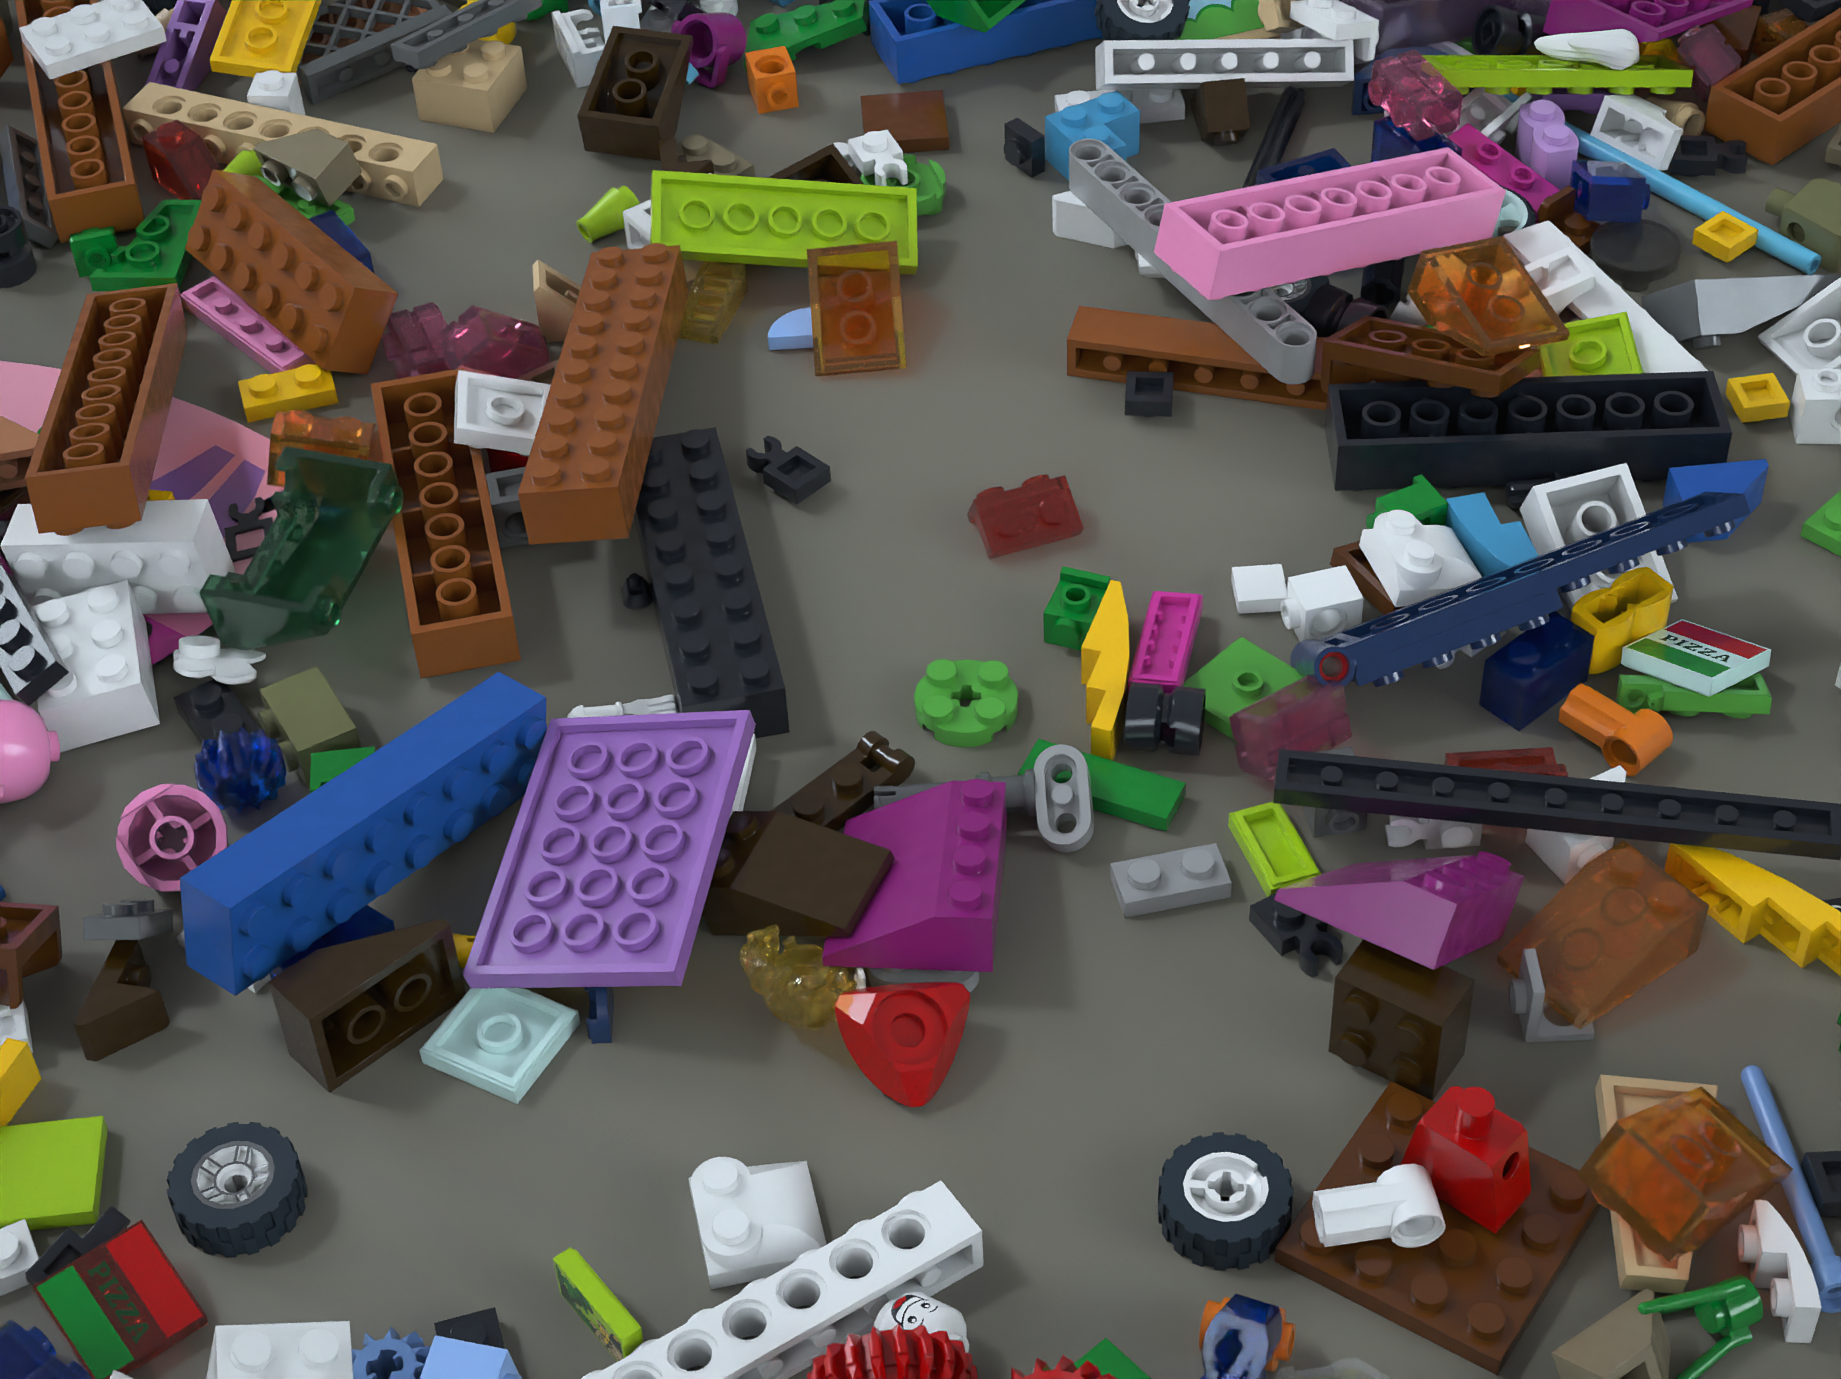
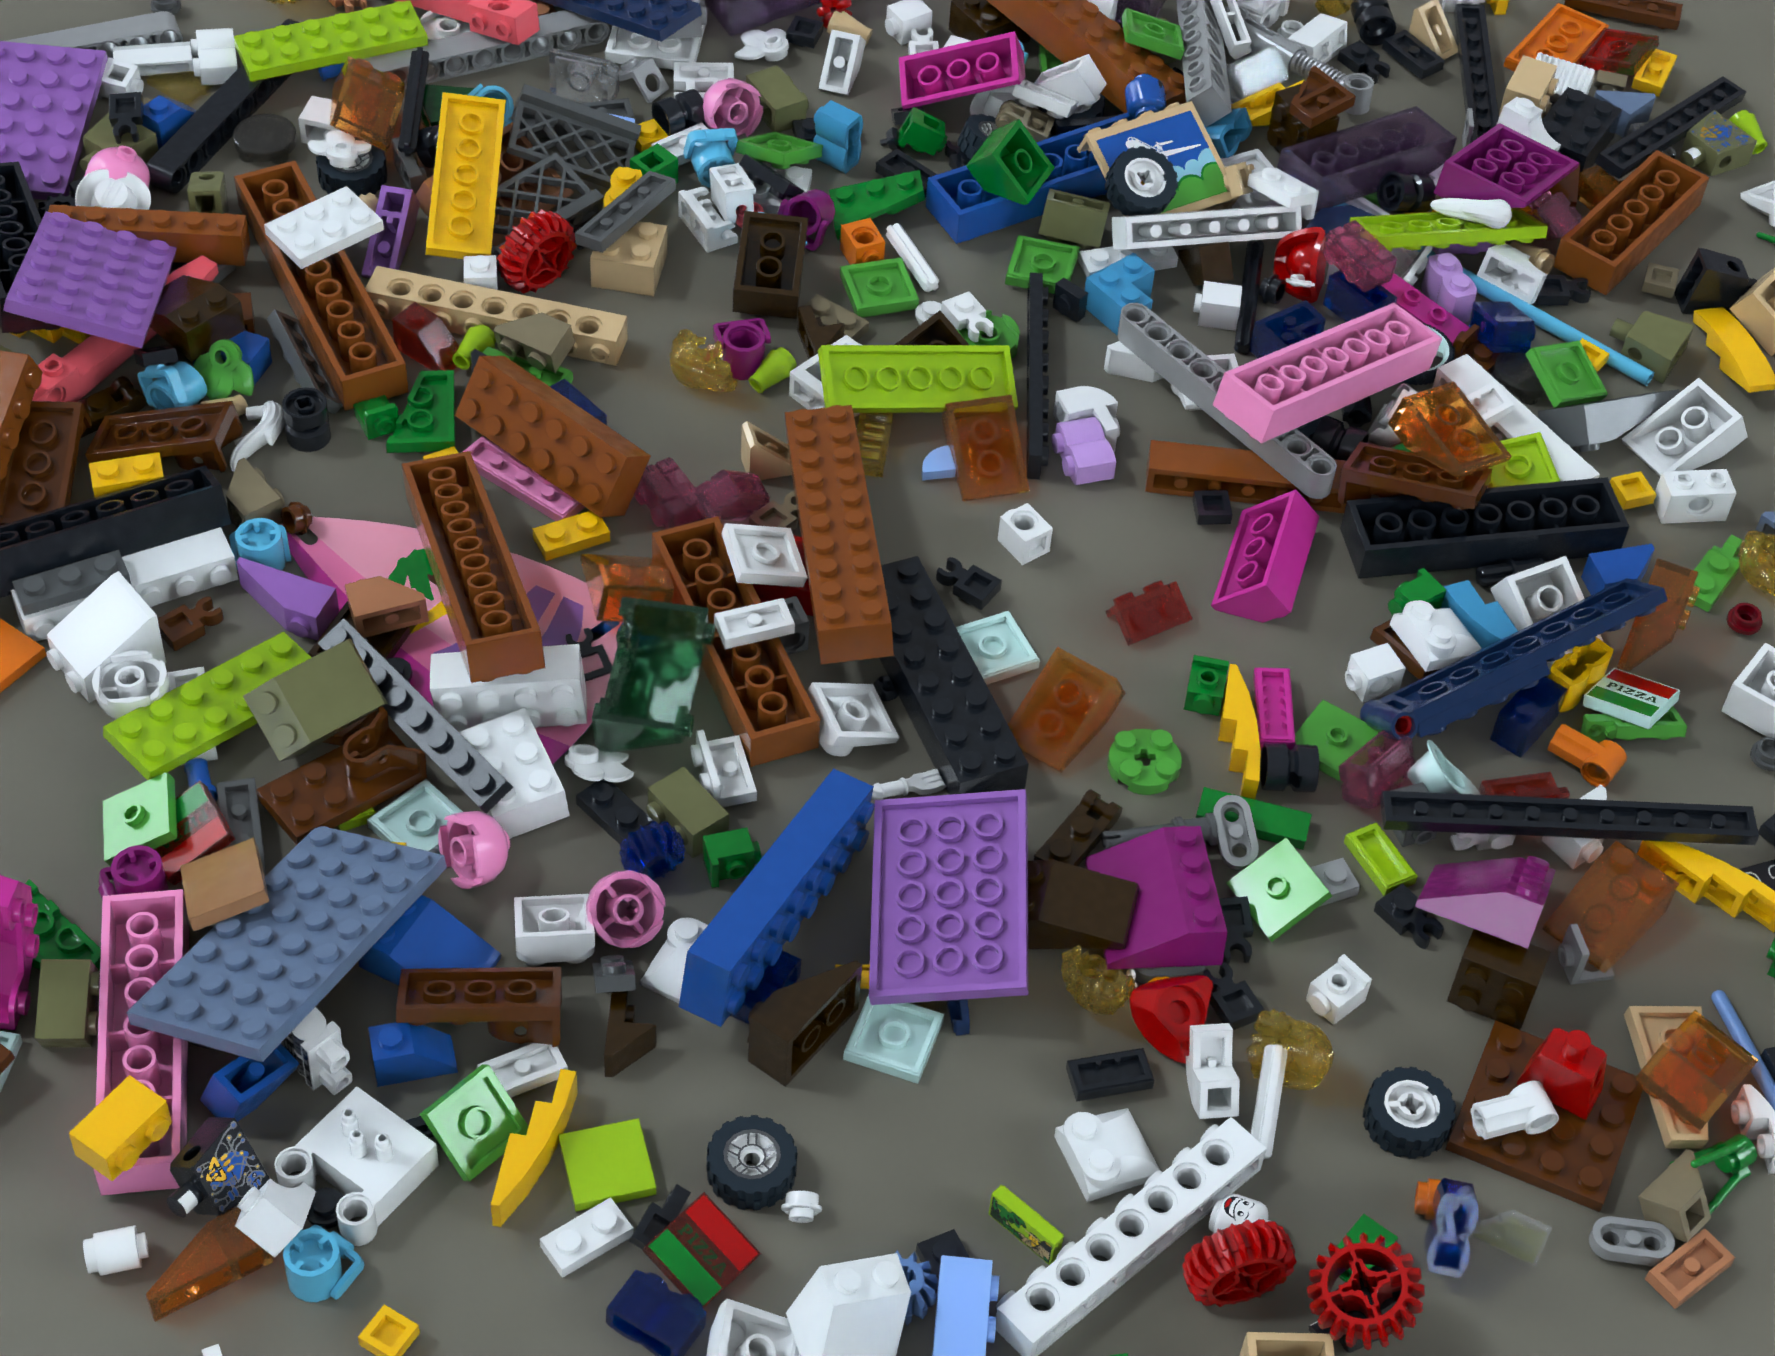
camera: 15 degrees left, 5 degrees up
(70, 863) = (553, 929): none -> white slope
(287, 1255) = (801, 1206): none -> white plate
(330, 87) = (536, 251): none -> red gear
(376, 678) = (724, 769): none -> white bracket
(458, 491) = (754, 623): none -> white plate
(509, 204) = (698, 366): none -> clear yellow hair
(567, 620) = (850, 717): none -> white slope
(575, 183) = (743, 344): none -> magenta piece
(779, 127) = (879, 287): none -> bright green plate
(790, 1111) = (1110, 1074): none -> black plate
(798, 552) = (998, 647): none -> light aqua tile
(835, 97) = (912, 257): none -> white axle
(867, 628) = (1064, 709): none -> clear orange slope
(880, 413) = (1024, 533): none -> white brick
(912, 118) = (971, 273): reddish brown tile -> none
(935, 1115) = (1210, 1071): none -> white brick
(951, 233) = (1037, 383): none -> black plate
(990, 320) = (1084, 450): none -> lavender brick
(997, 100) = (1044, 257): none -> bright green plate
(1000, 1025) = (1233, 1001): none -> black plate
(1009, 274) = (1089, 402): none -> white brick
(1012, 1164) = (1269, 1096): none -> white axle
(1026, 921) = (1238, 925): none -> black plate
(1052, 55) = (1074, 219): none -> olive brick
(1060, 1097) = (1307, 1046): none -> clear yellow hair
(1106, 877) = (1279, 889): none -> plate
(1161, 1021) = (1338, 990): none -> white brick
(1209, 458) = (1267, 558): none -> dark pink slope
(1222, 158) = (1218, 305): none -> white brick
(1258, 588) = (1324, 659): white tile -> none
(1303, 141) = (1272, 289): none -> black plate
(1346, 111) = (1302, 262): none -> red hat
(1381, 735) = (1439, 774): none -> light aqua piece
(1685, 245) = (1566, 374): none -> bright green plate
(1758, 554) = (1658, 629): none -> clear orange slope

